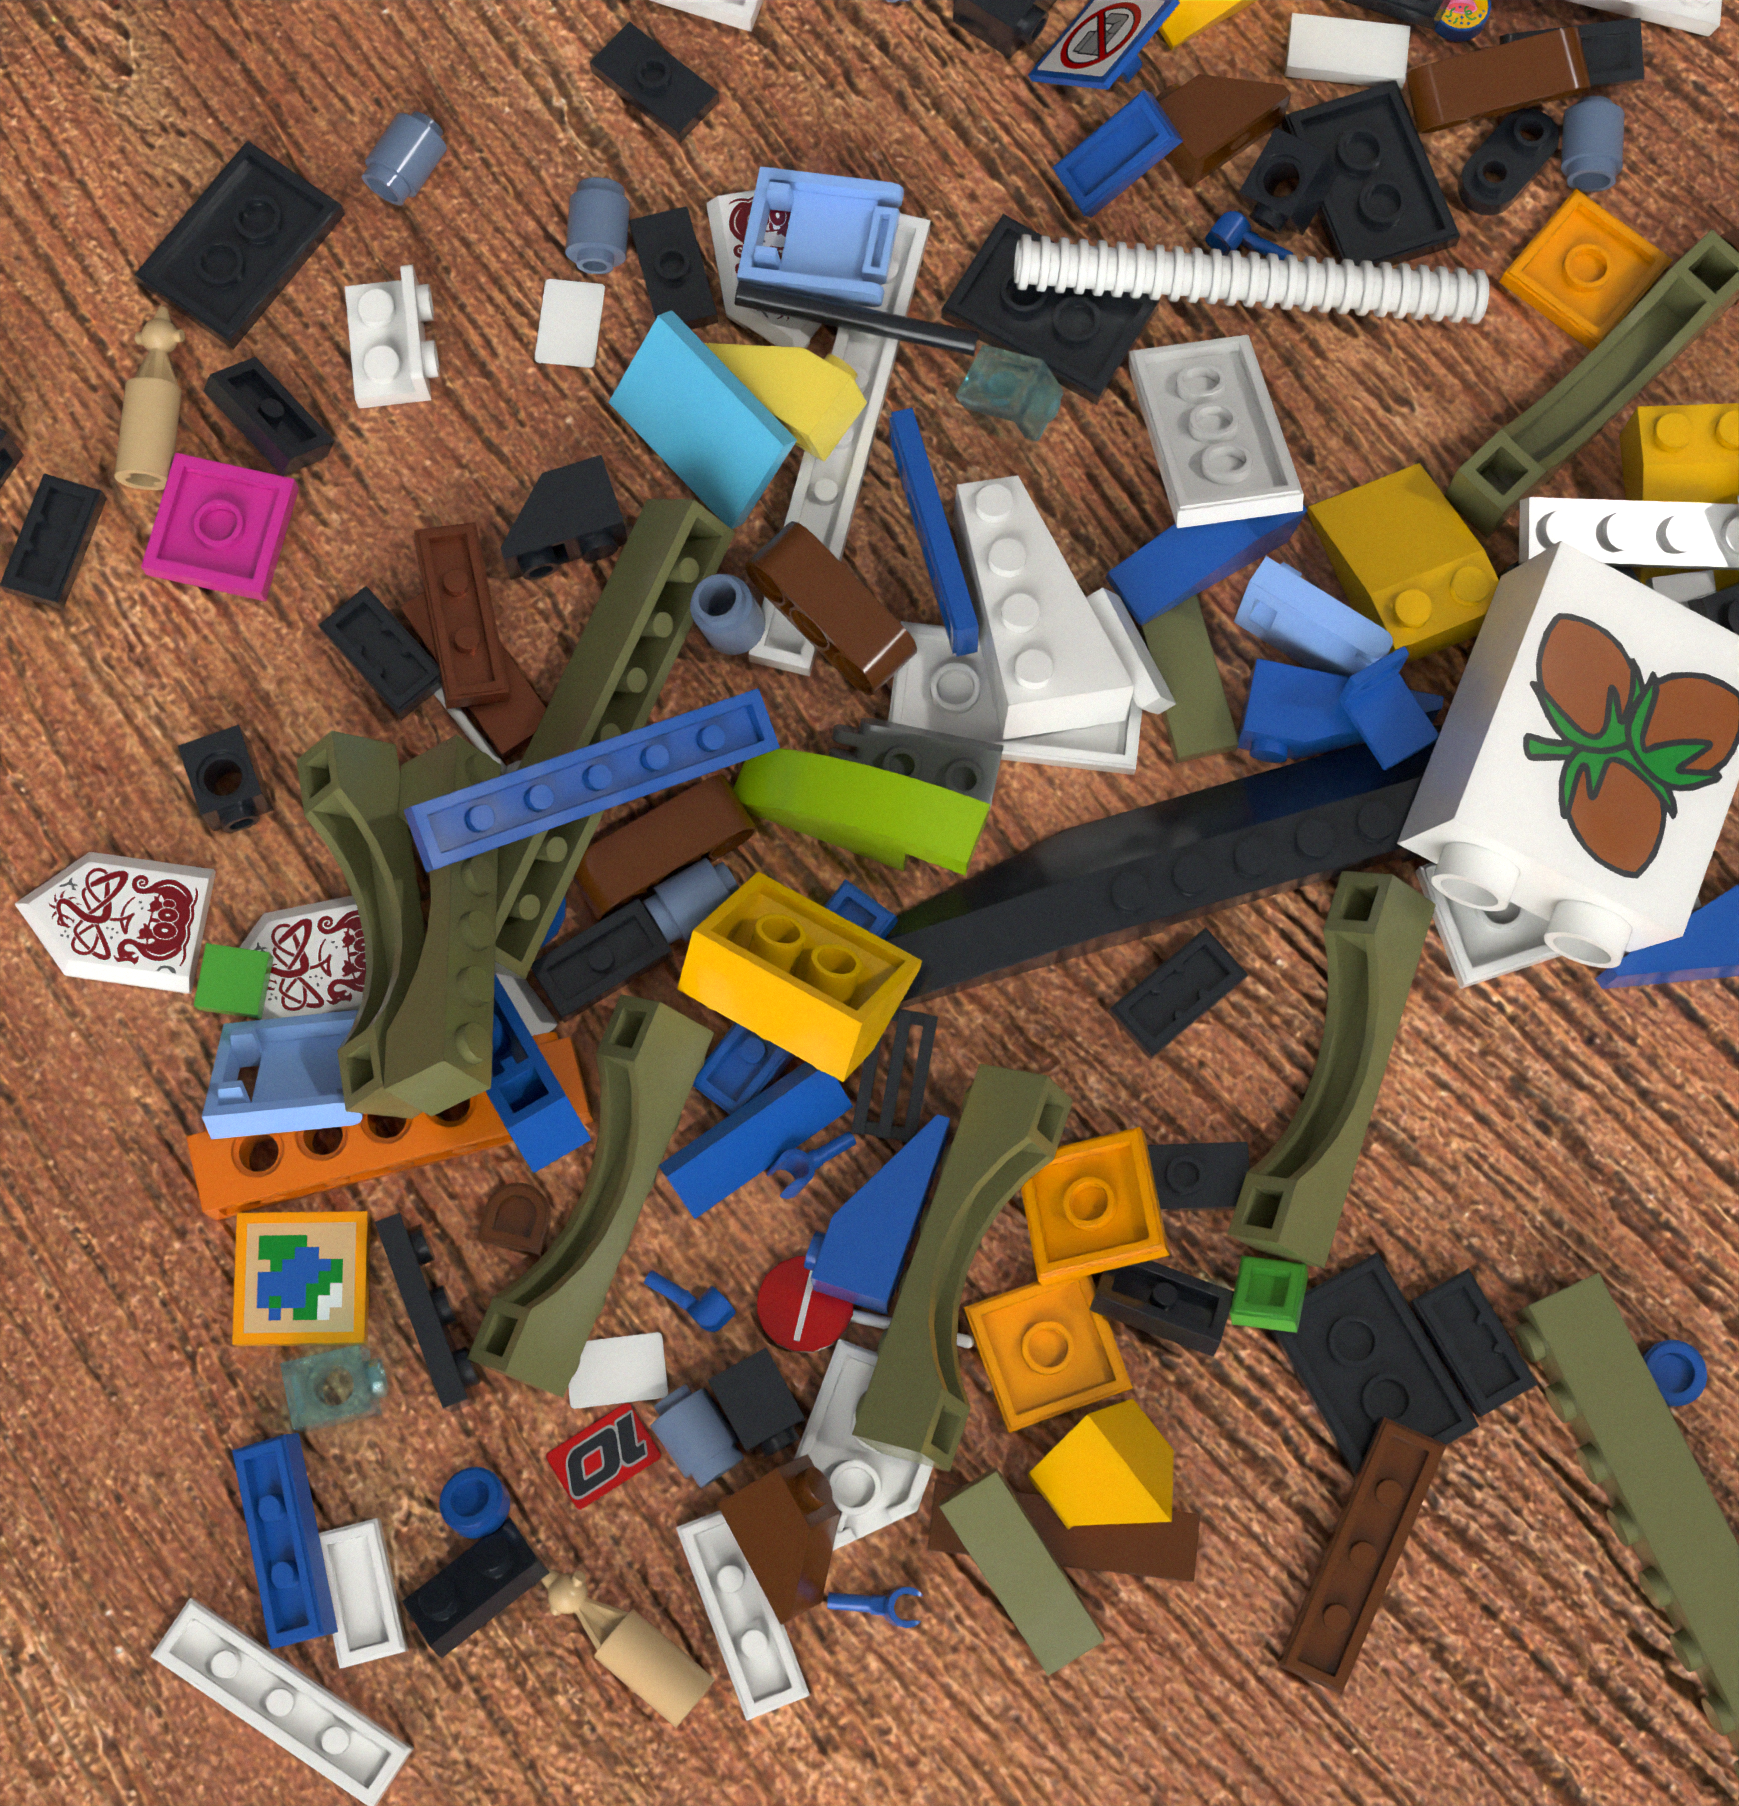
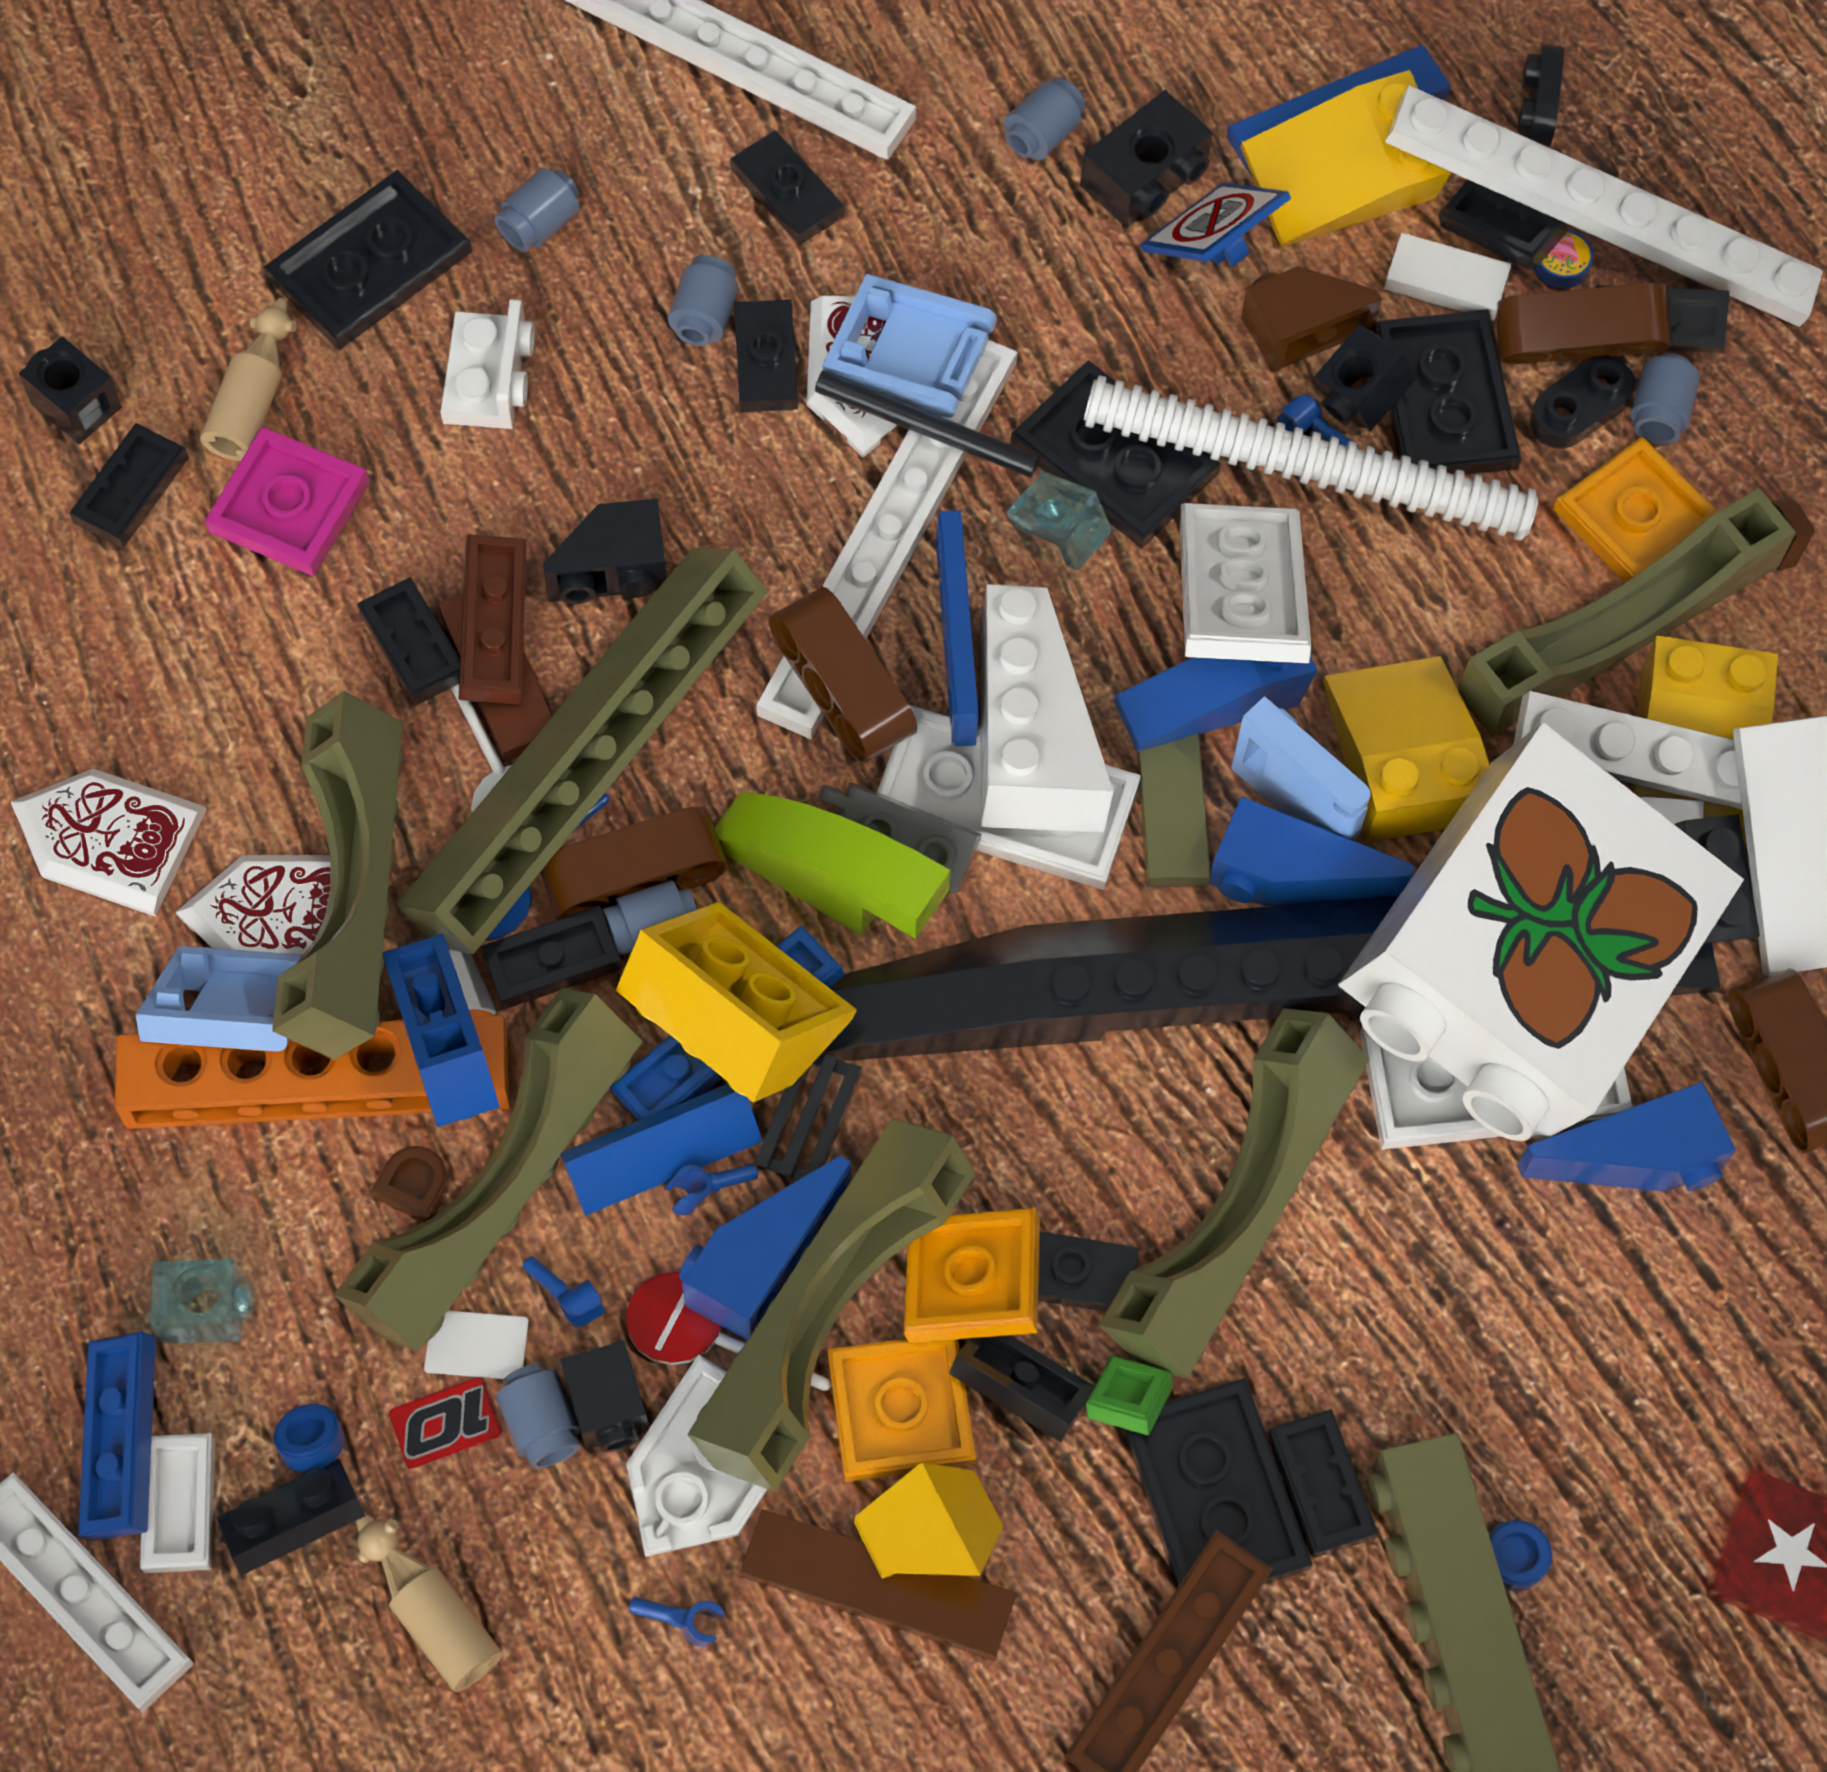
camera: 10 degrees right, 10 degrees down
(214, 757) = (232, 703): black brick -> none
(233, 981) = (197, 906): bright green tile -> none
(268, 416) = (356, 411): black plate -> none
(301, 1278) = (194, 1195): tile -> none
(429, 1311) = (308, 1248): black plate -> none
(444, 1028) = (384, 964): olive arch -> none
(569, 323) = (658, 384): white sticker -> none
(590, 780) = (576, 777): blue plate -> none
(701, 420) = (759, 486): medium azure tile -> none
(727, 614) = (743, 661): sand blue brick -> none
(742, 1619) = (545, 1597): white tile -> none
(786, 1534) = (604, 1524): reddish brown slope -> none
(806, 393) = (838, 470): light yellow slope -> none
(1021, 1570) = (827, 1608): olive tile -> none
(1117, 153) = (1206, 324): blue tile -> none
(1149, 686) = (1129, 795): white tile -> none
(1177, 993) = (1101, 1096): black plate -> none
(1387, 711) = (1353, 860): blue bracket -> none

